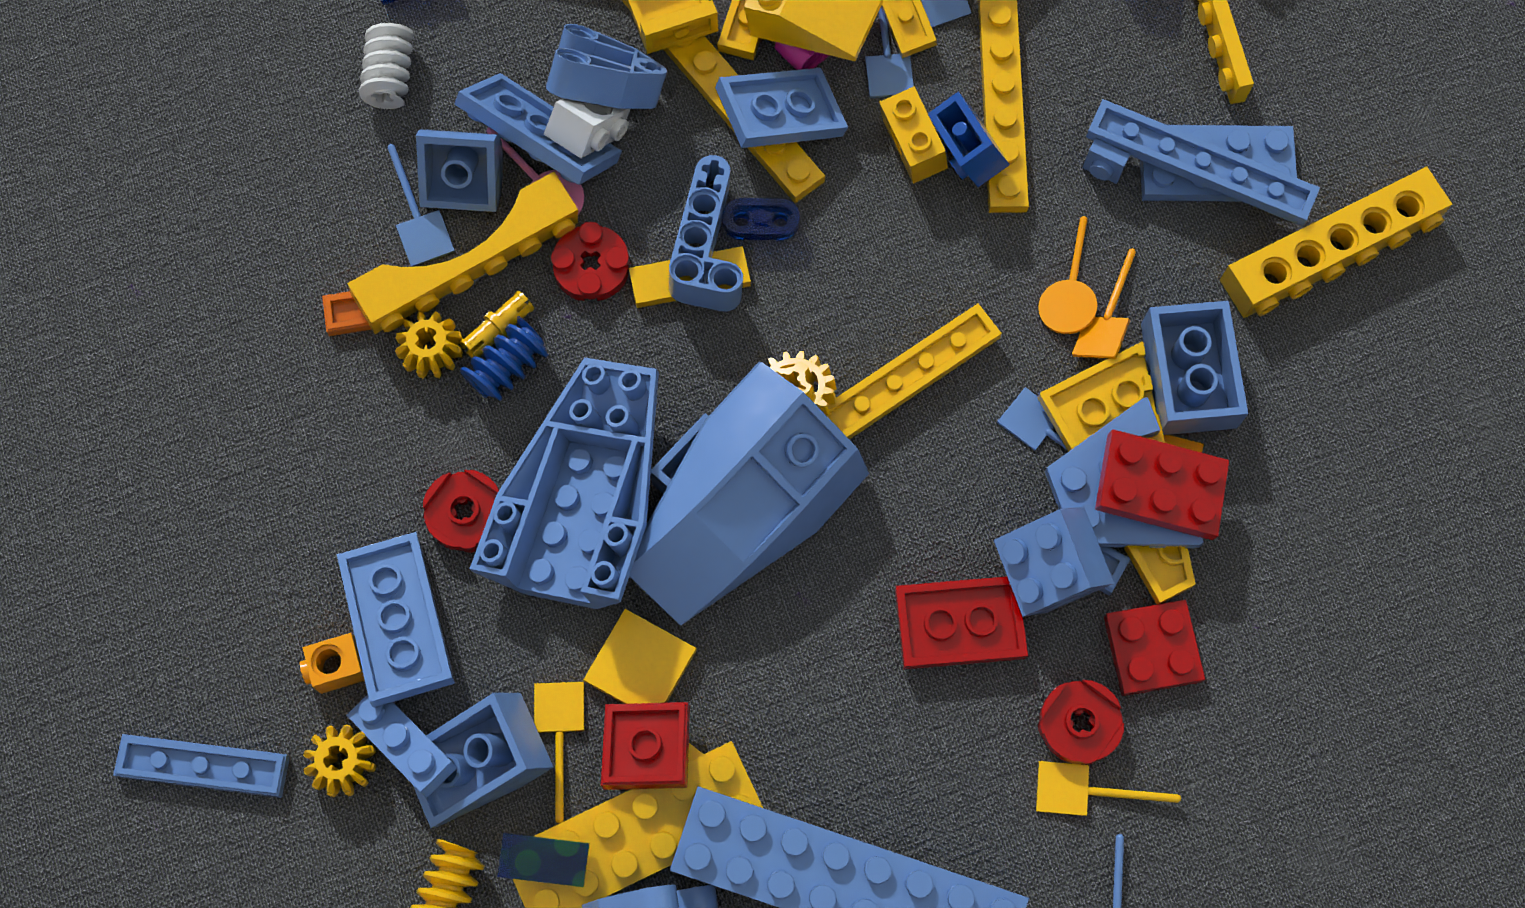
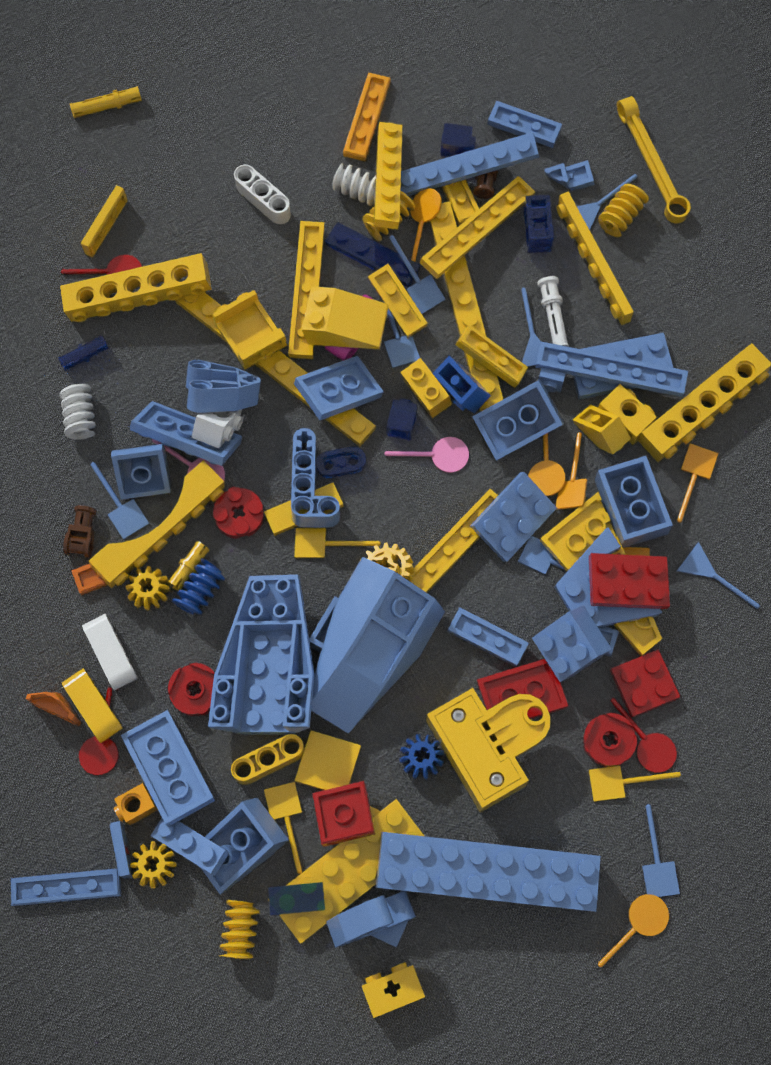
camera: 10 degrees left, 0 degrees up
(250, 487) = (55, 704): none -> orange slope
(297, 726) = (121, 849): none -> medium blue tile
(301, 575) = (99, 757): none -> red piece
(304, 501) = (92, 705): none -> yellow beam
(348, 247) = (80, 535): none -> reddish brown connector
(350, 427) = (109, 652): none -> white beam
(530, 633) = (254, 758): none -> yellow beam
(691, 330) = (312, 543): none -> yellow piece
(789, 698) = (426, 764): none -> blue gear
(866, 174) = (402, 419): none -> clear blue brick
(890, 684) = (486, 742): none -> yellow brick
(924, 242) = (447, 454): none -> bright pink piece
(926, 525) = (488, 637): none -> medium blue plate
(1004, 352) = (513, 516): none -> medium blue plate
(1023, 107) = (491, 356): none -> yellow tile
(1043, 208) = (518, 419): none -> medium blue slope
(1087, 110) = (533, 345): none -> medium blue piece
(1131, 49) = (552, 302): none -> white pin
(1147, 754) = (655, 750): none -> red piece
(1170, 250) = (602, 428): none -> yellow slope
(1210, 255) = (625, 399): none -> yellow brick
(1275, 484) = (698, 564): none -> medium blue piece
(1306, 331) = (698, 463): none -> light orange piece

